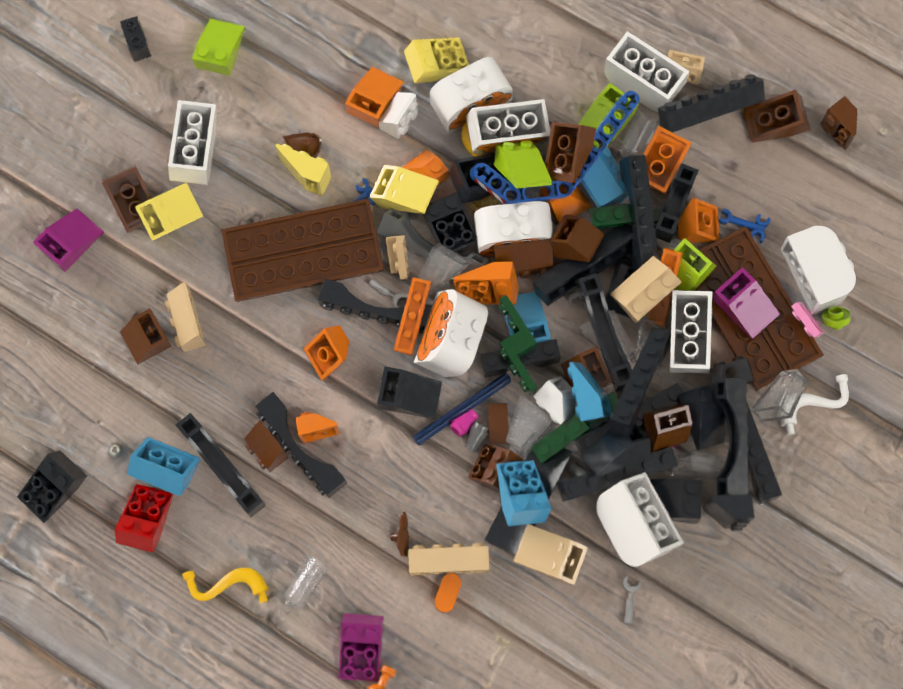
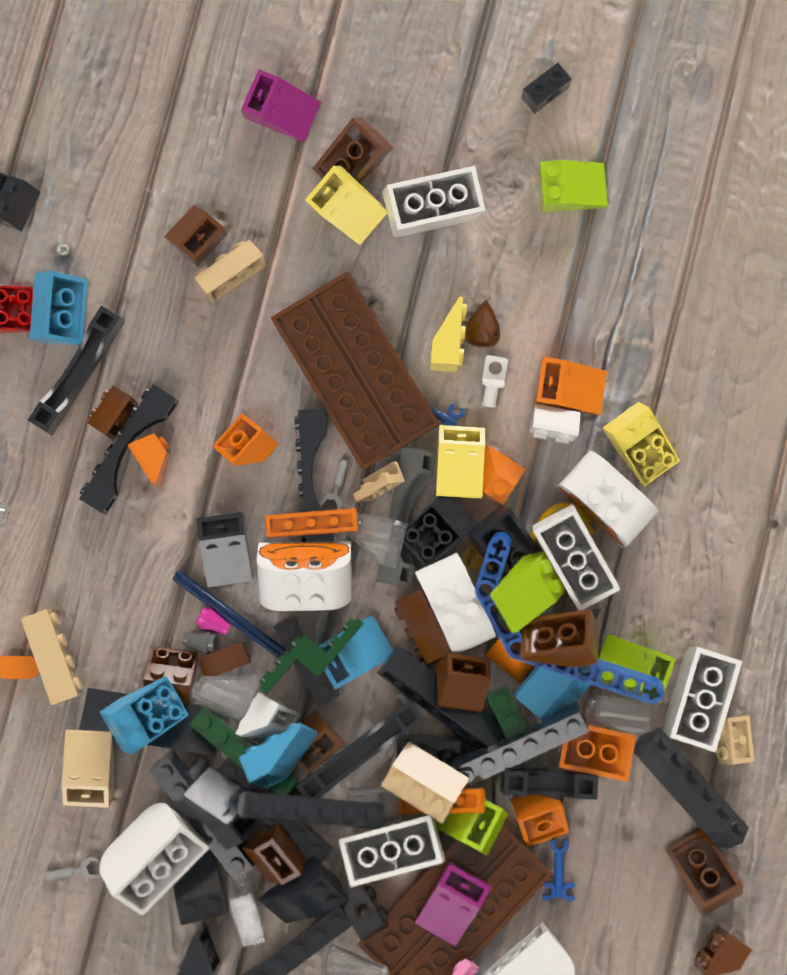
camera: 65 degrees right, 10 degrees up
(349, 150) = (493, 381): none -> white bracket
(402, 536) = (63, 596): reddish brown piece -> none
(489, 283) = (378, 597): orange slope -> none
(731, 397) = (240, 949): black arch -> none

